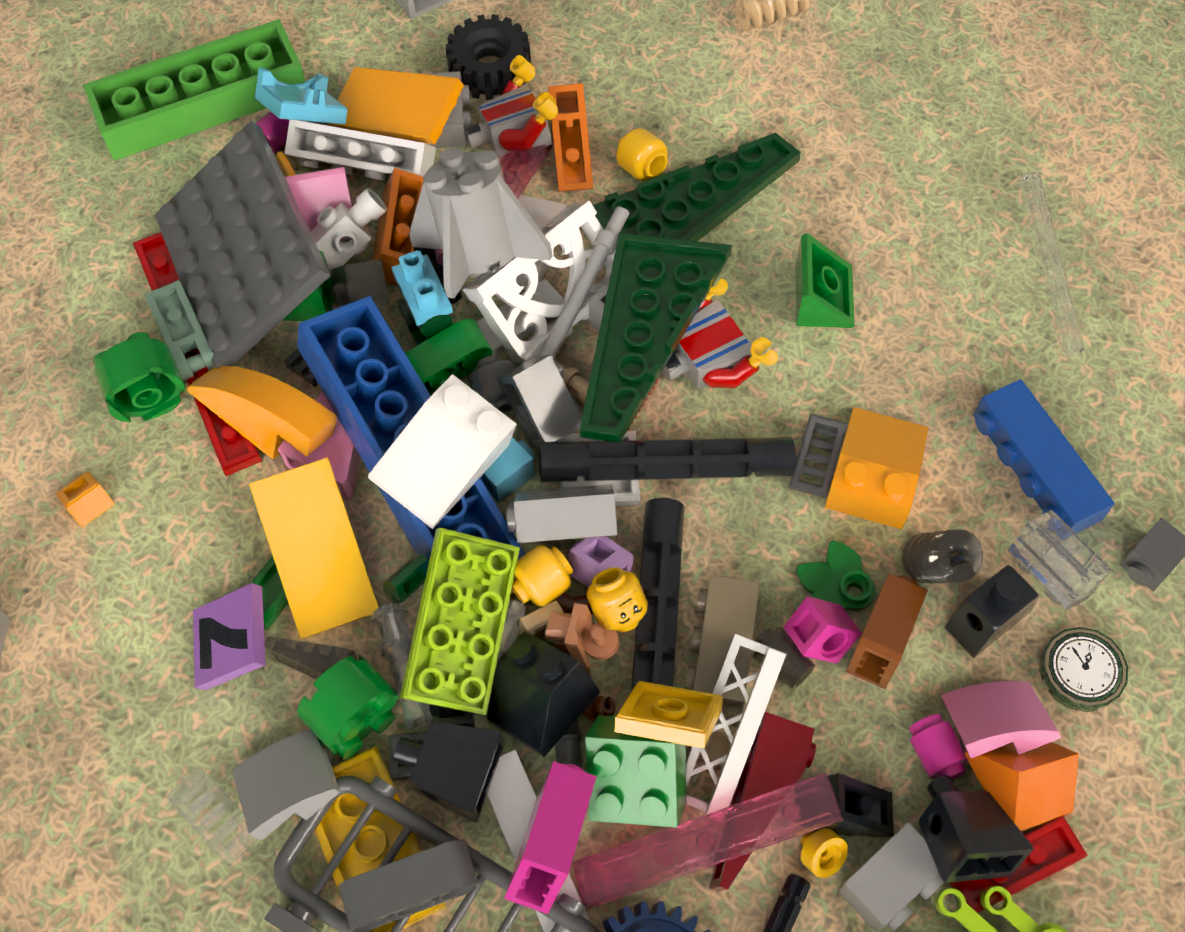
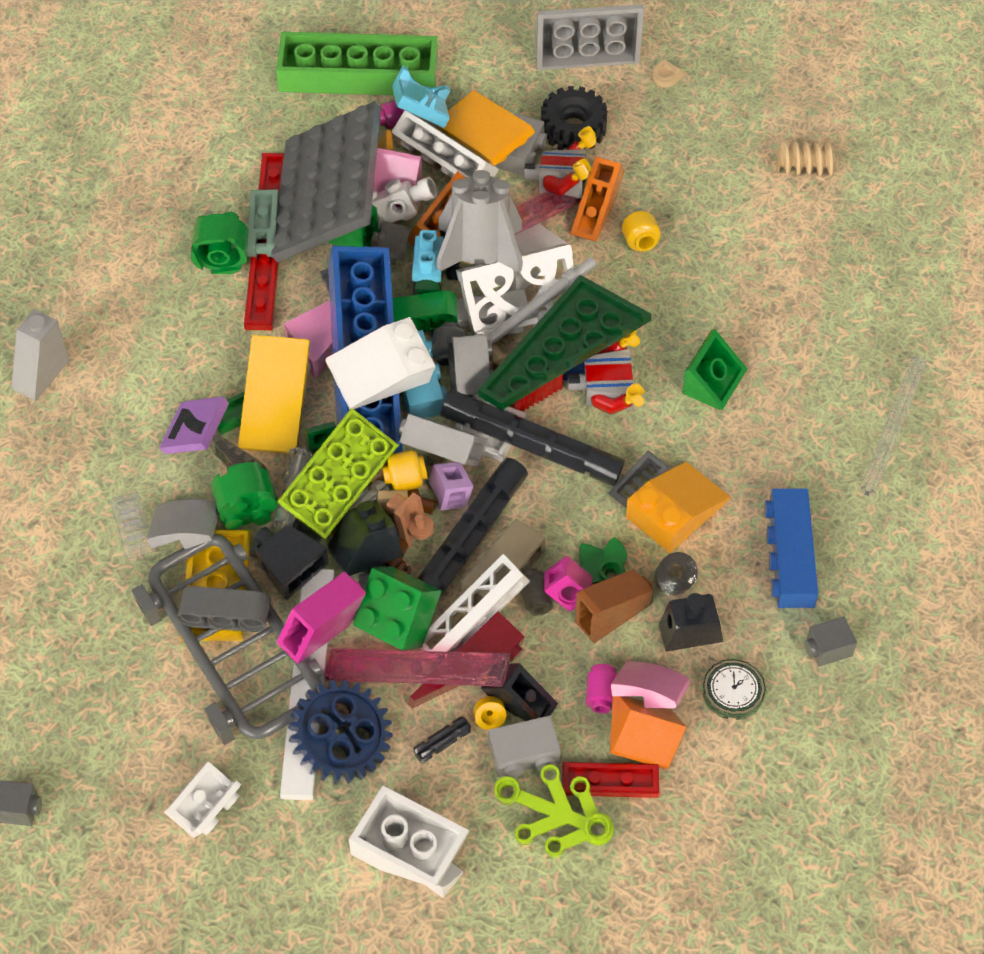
camera: 25 degrees right, 5 degrees down
(84, 498) = (149, 306): light orange slope -> none
(264, 409) = (288, 295): light orange slope -> none
(617, 599) = (444, 505): yellow head -> none
(669, 714) = (433, 580): yellow tile -> none
(698, 199) = (660, 278): dark green wing -> none
(970, 834) = (584, 739): black torso -> none
(1059, 560) = (757, 612): clear brick -> none

